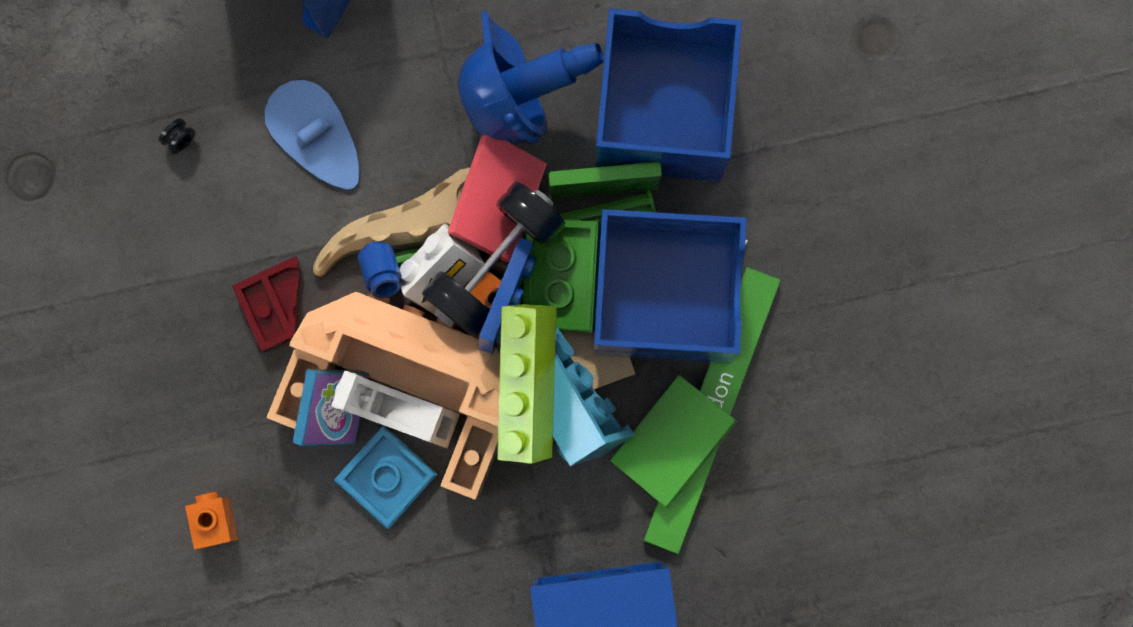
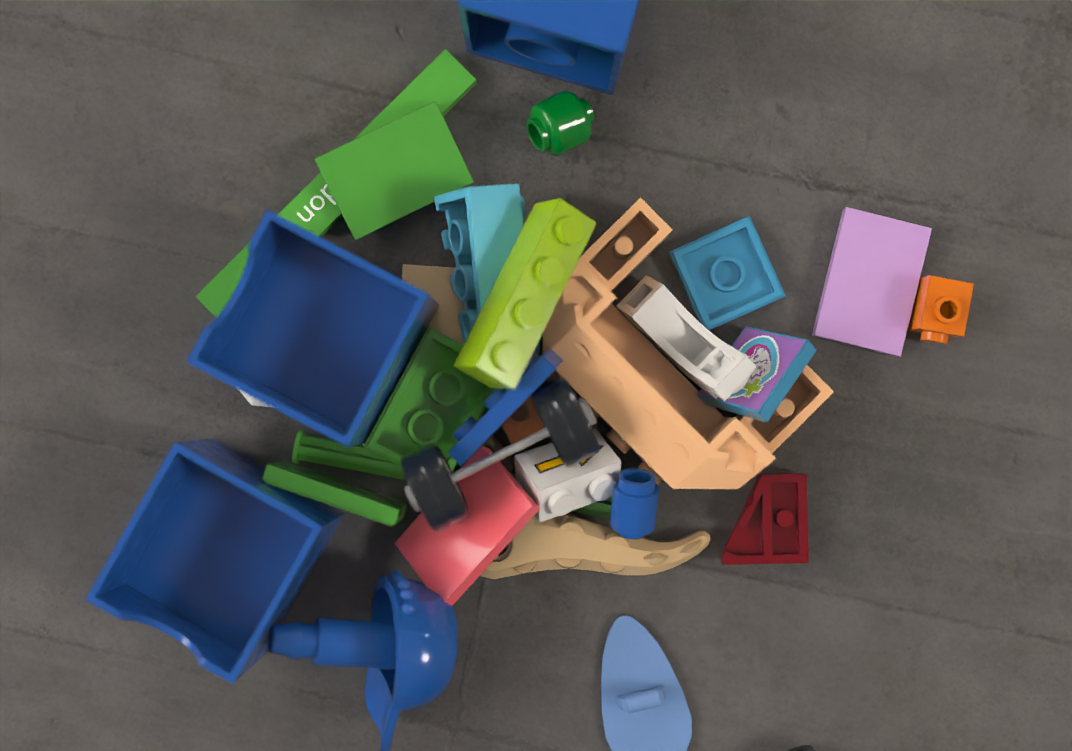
camera: 155 degrees left, 5 degrees up
(272, 520) = (871, 282): none -> lavender tile
(563, 534) = (560, 123): none -> green head

